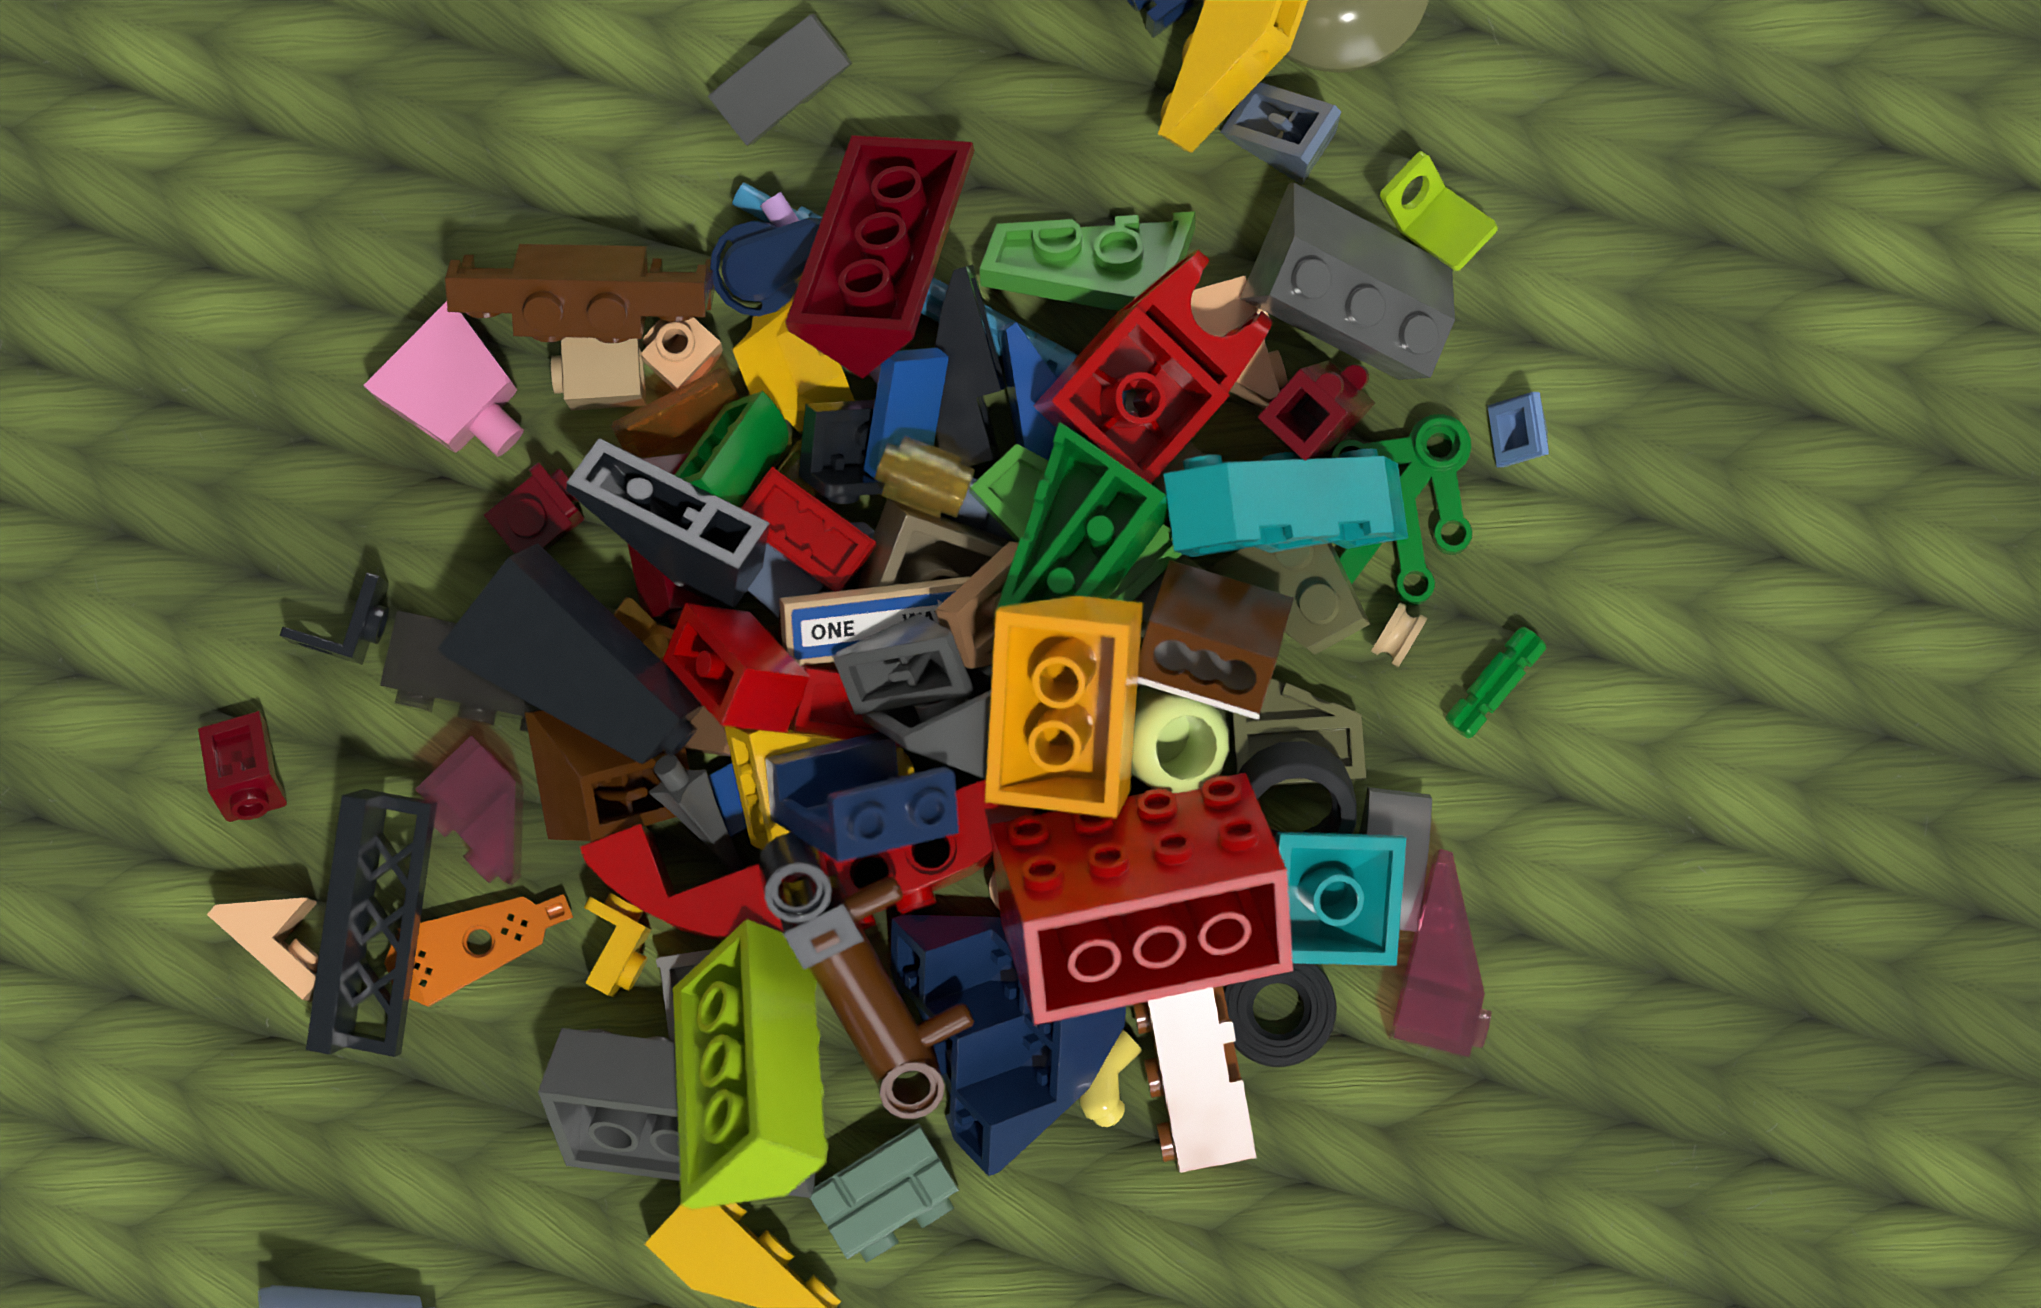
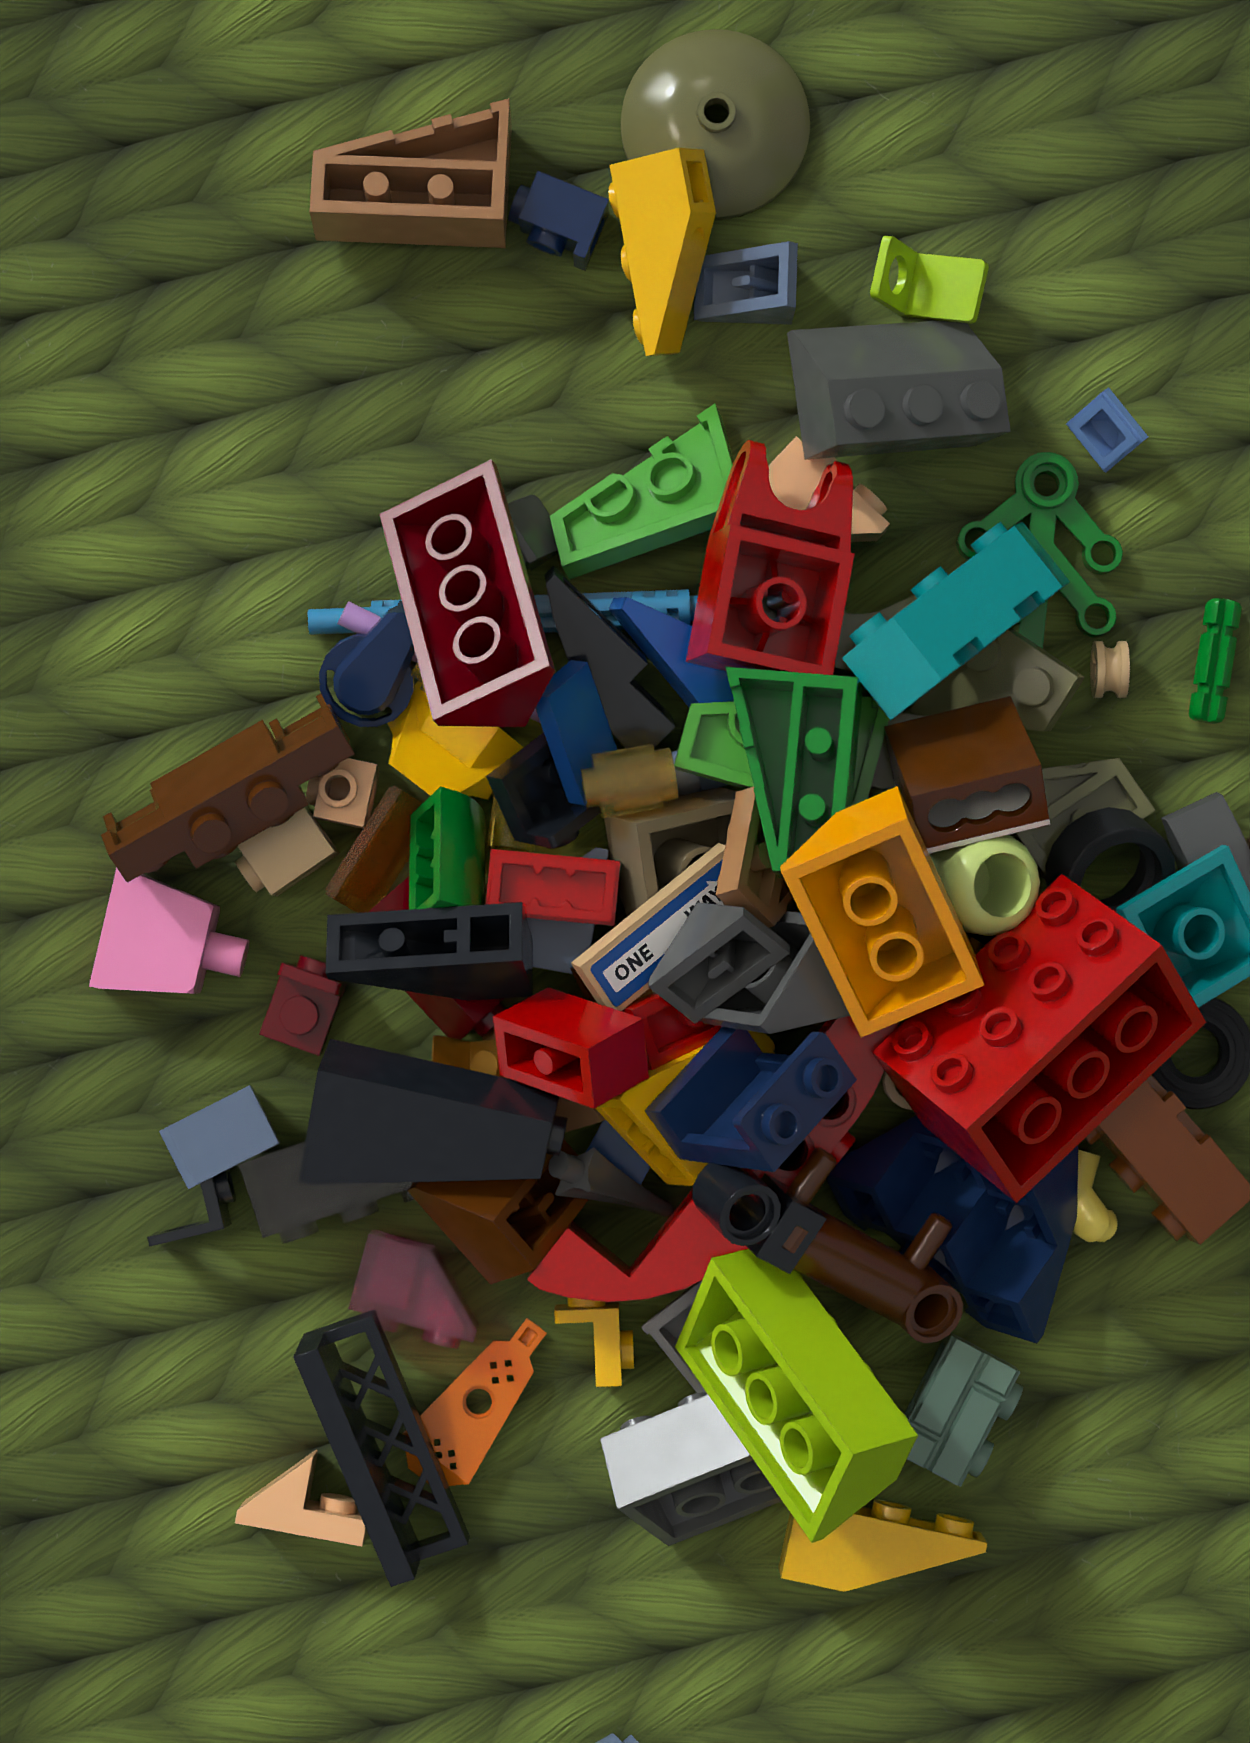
camera: 30 degrees left, 5 degrees up
(241, 767) = (183, 1376): dark red bracket -> none
(397, 576) = (219, 1136): none -> sand blue slope
(780, 79) = (285, 500): dark grey slope -> none
(972, 226) = (533, 530): none -> dark grey slope
(1318, 408) = (932, 516): dark red brick -> none

